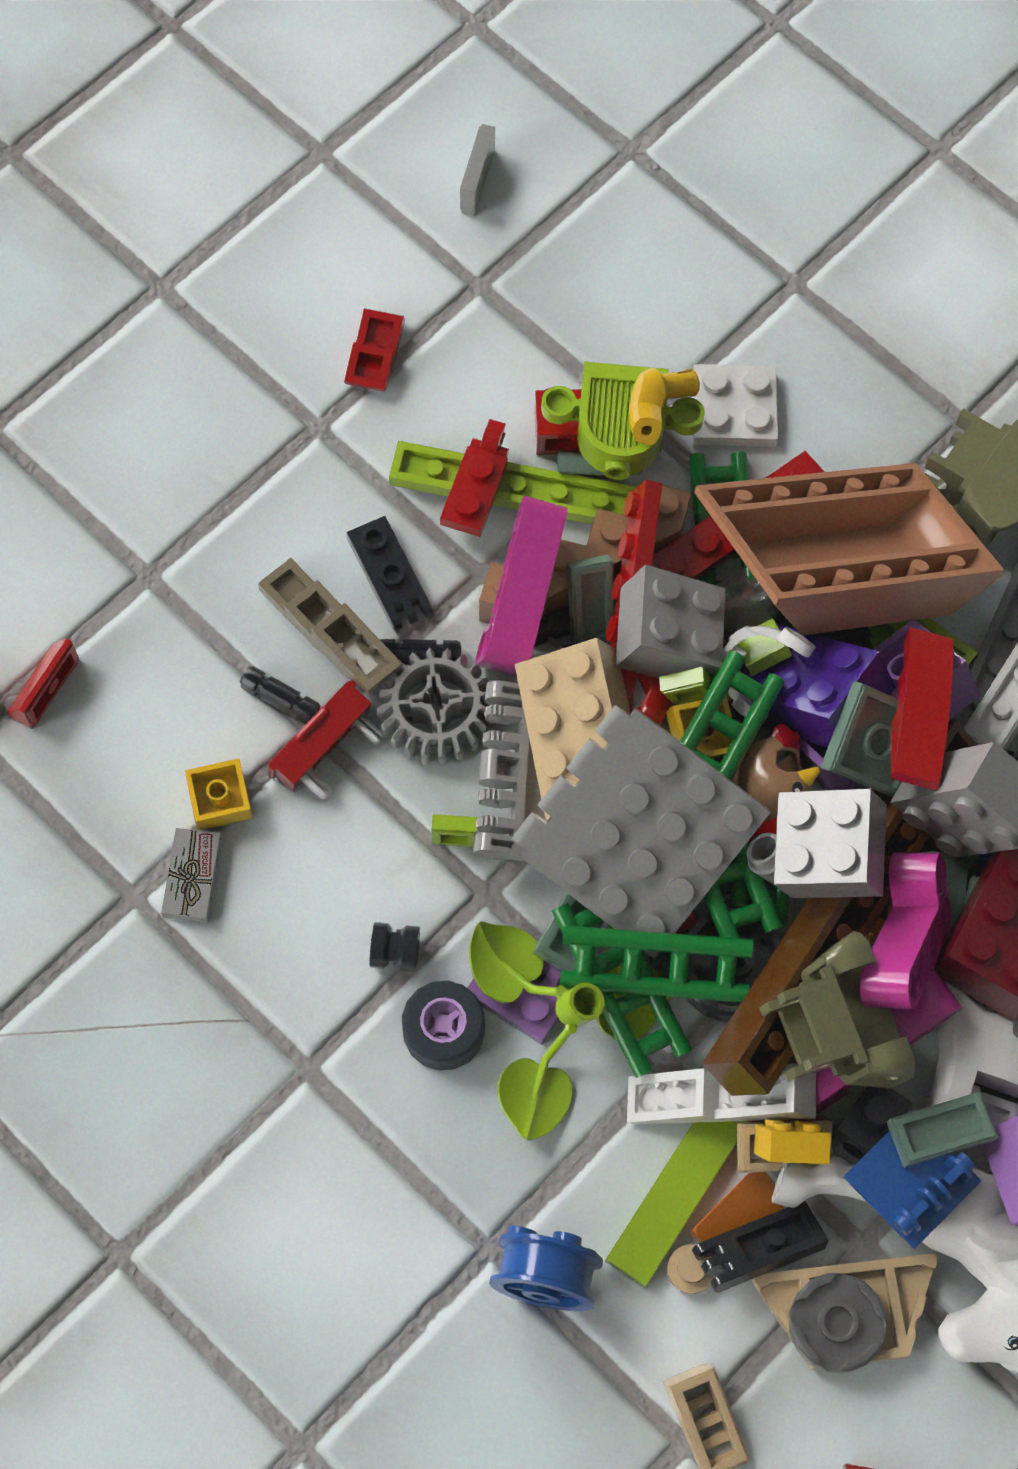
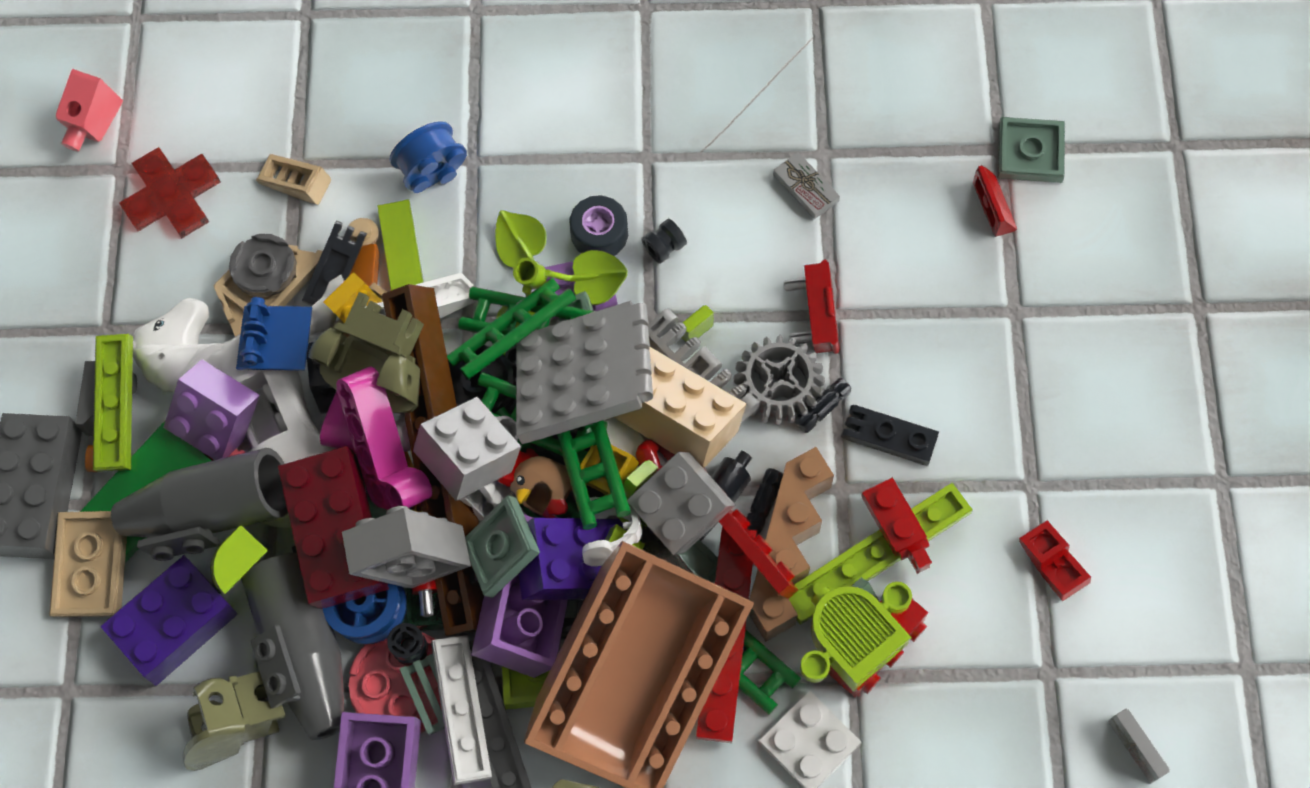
camera: 140 degrees right, 0 degrees up
(218, 794) = (838, 230): yellow piece -> none
(279, 694) = (868, 311): black axle -> none
(329, 626) = (883, 366): dark tan slope -> none
(522, 586) = (797, 467): dark pink beam -> none
(590, 597) = (760, 510): sand green tile -> none
(649, 396) = (841, 635): yellow arm -> none
(922, 709) = (485, 573): red slope -> none
(942, 1129) = (277, 370): sand green tile -> none

